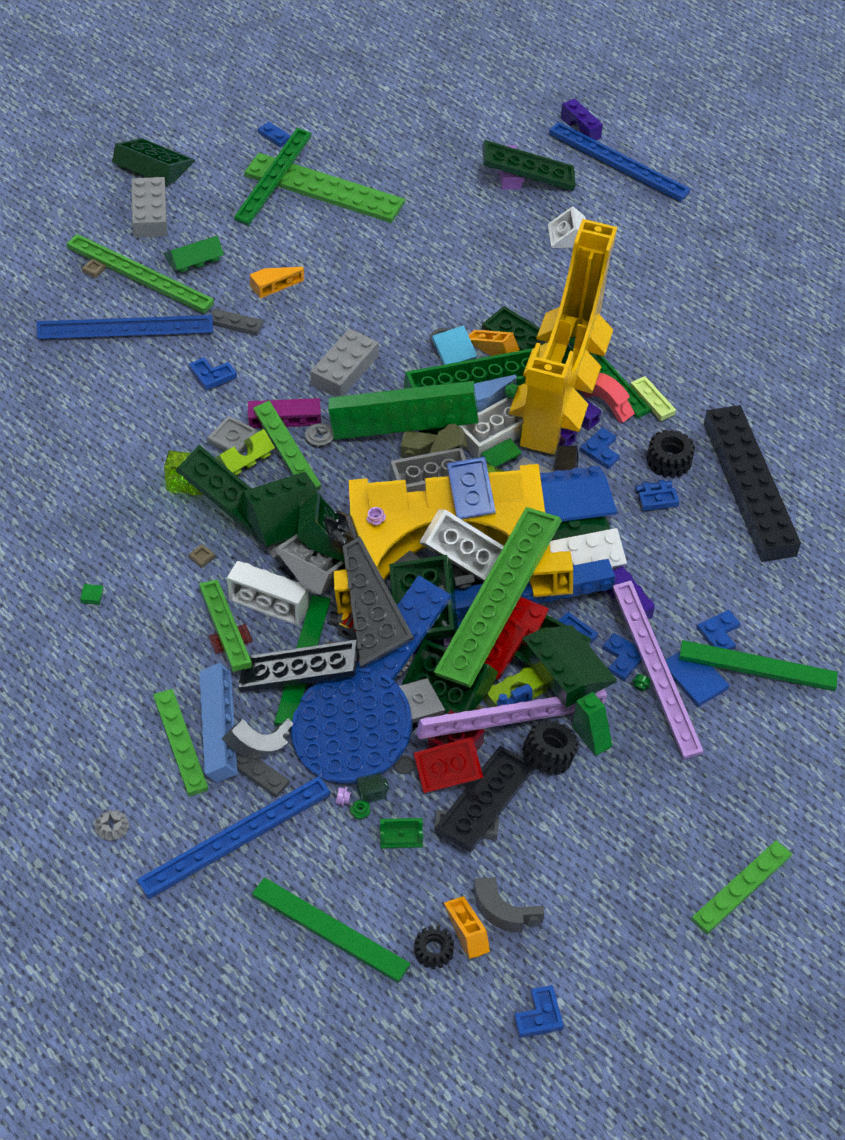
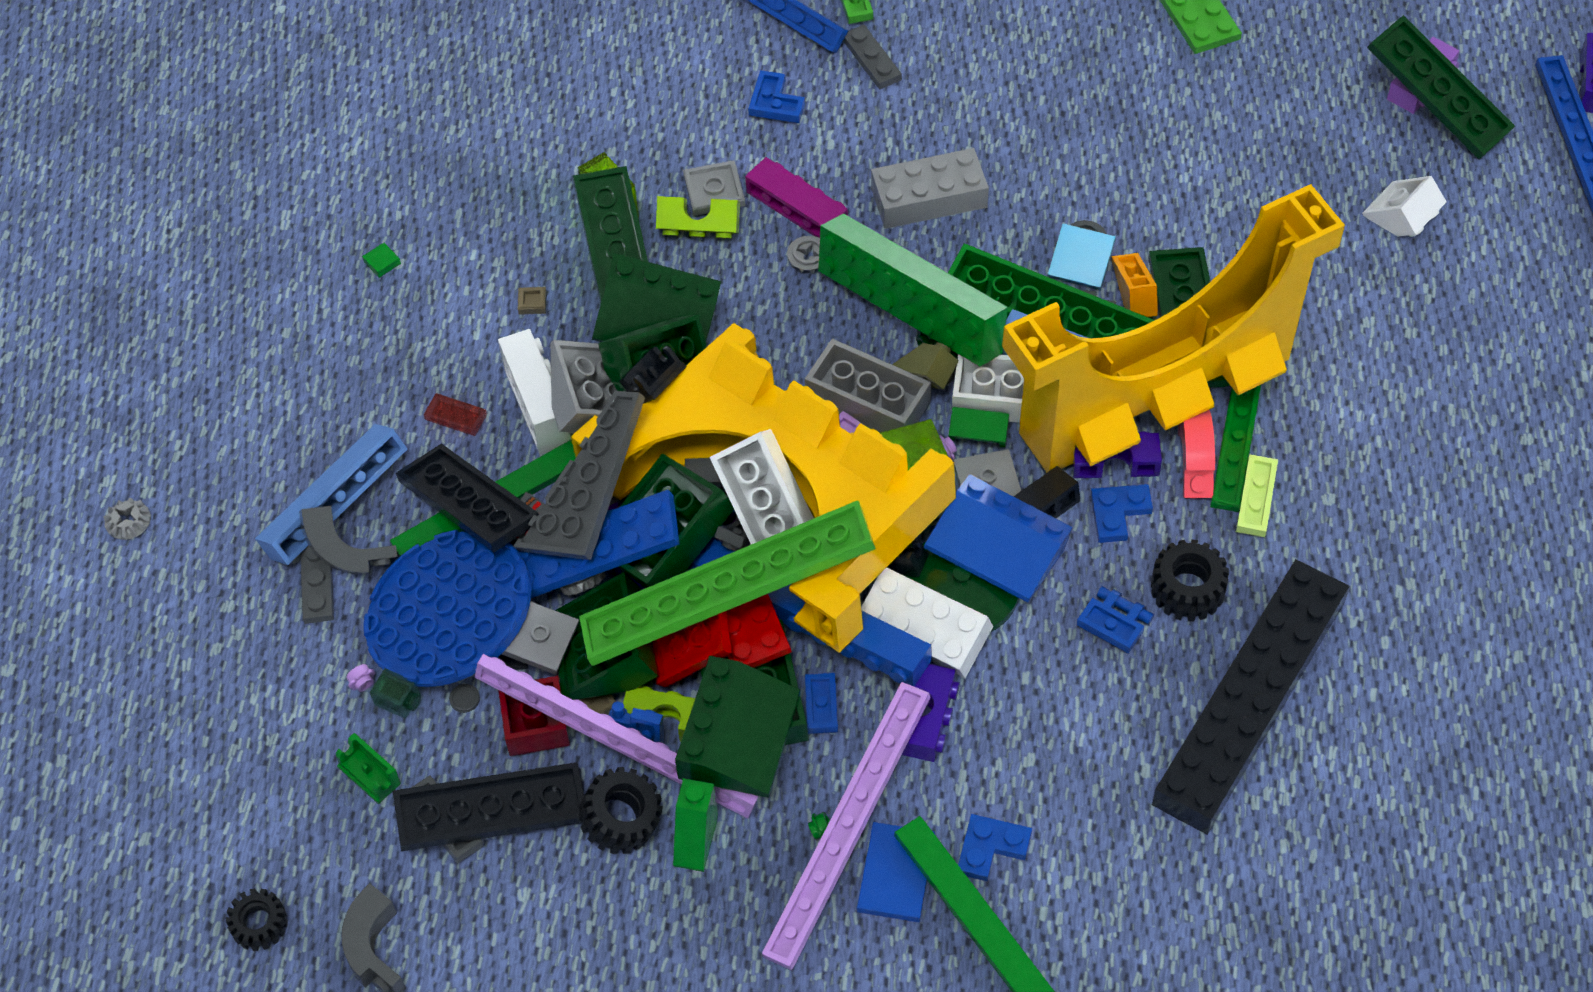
camera: 50 degrees right, 5 degrees up
(180, 742) = (283, 484): bright green plate -> none
(225, 625) = (456, 396): bright green plate -> none
(233, 837) = (216, 629): blue plate -> none
(275, 279) = (966, 33): light orange slope -> none
(283, 441) = (748, 242): bright green plate -> none
(331, 930) = (190, 811): green tile -> none
(360, 814) = (366, 713): green plate -> none
(376, 516) = (703, 385): lavender plate -> none
(416, 443) = (893, 340): olive slope -> none
(448, 765) = (484, 734): red plate -> none
(467, 927) = (309, 929): light orange slope -> none
(471, 488) = (829, 431): tile -> none
(626, 656) = (828, 789): blue plate -> none

